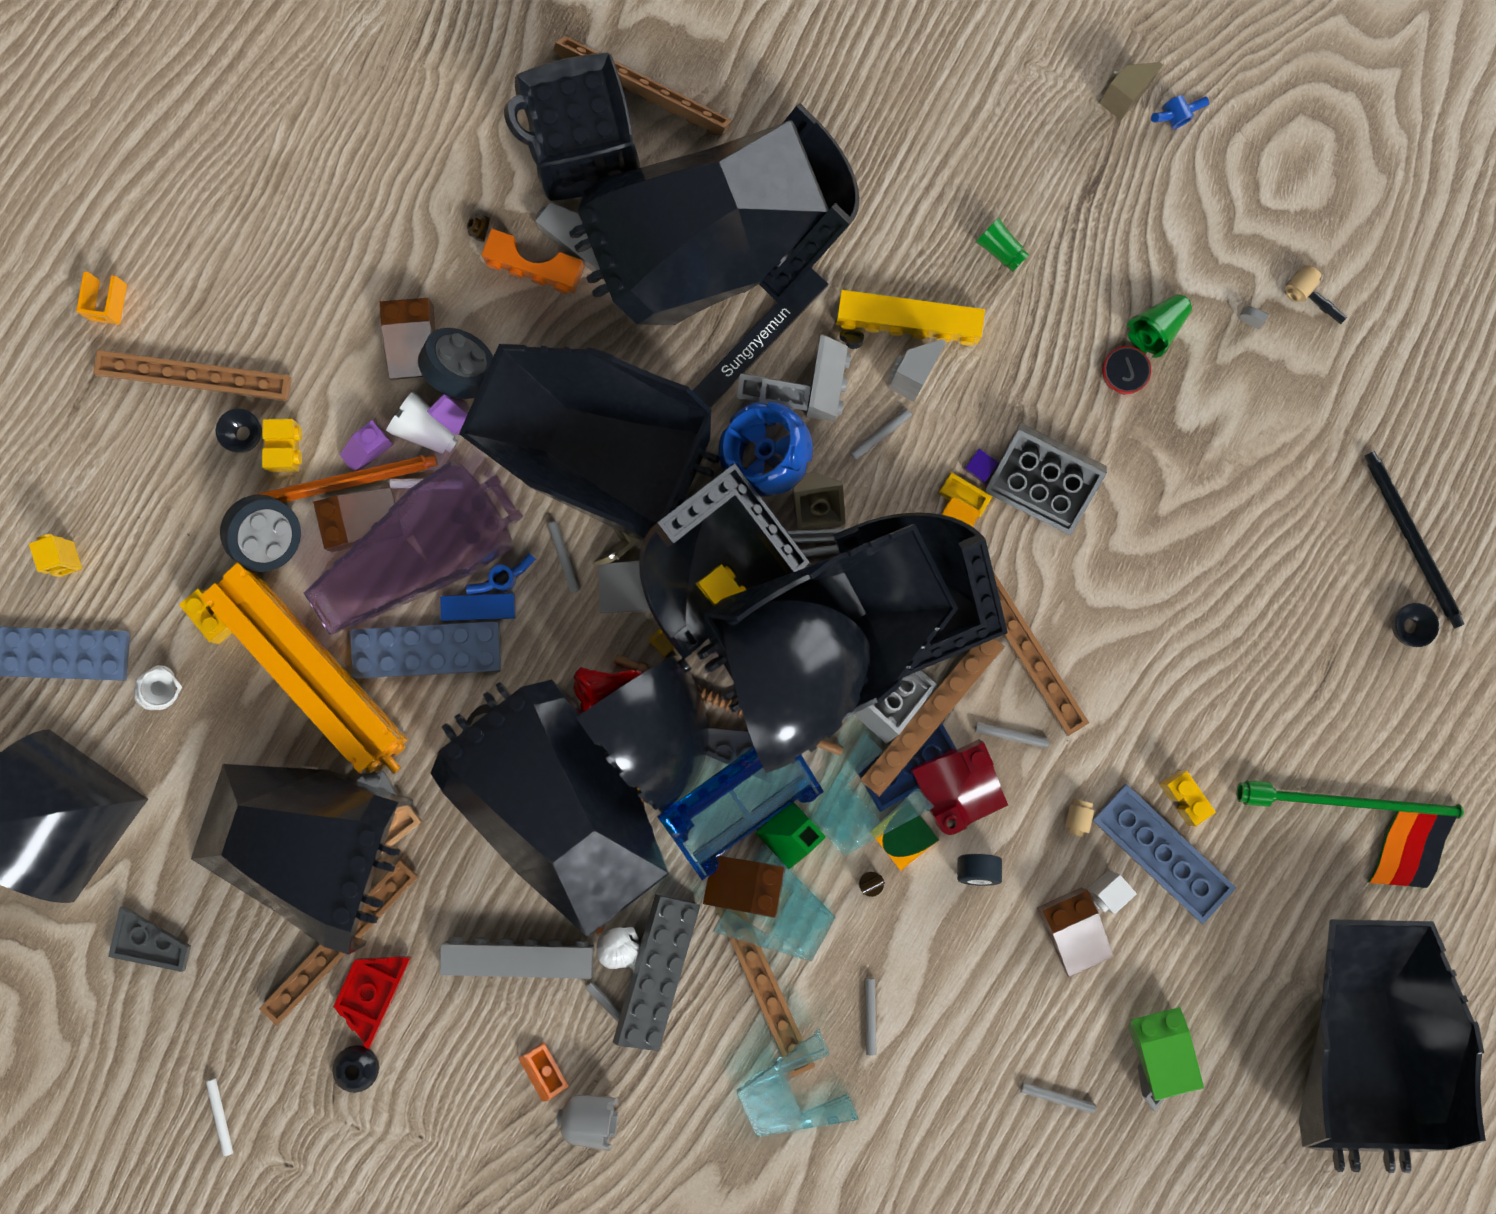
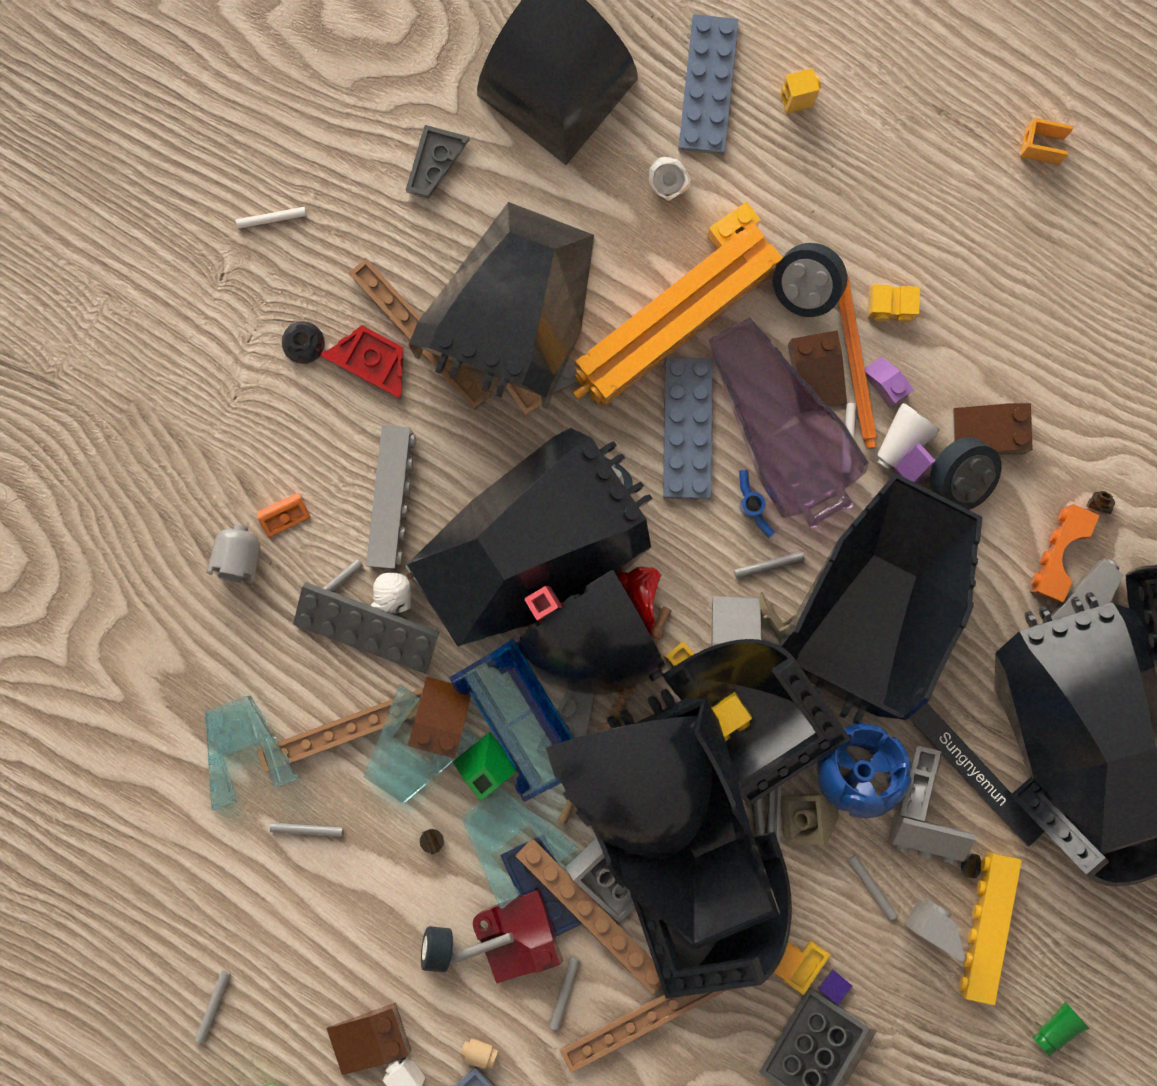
camera: 100 degrees right, 0 degrees up
(192, 375) = (966, 223): medium nougat plate -> none
(228, 426) = (917, 255): black piece -> none
(477, 607) = (725, 479): blue tile -> none
(616, 788) = (543, 602): none -> coral brick
(907, 841) = (469, 880): dark green tile -> none
(974, 823) = (481, 948): none -> light grey bar

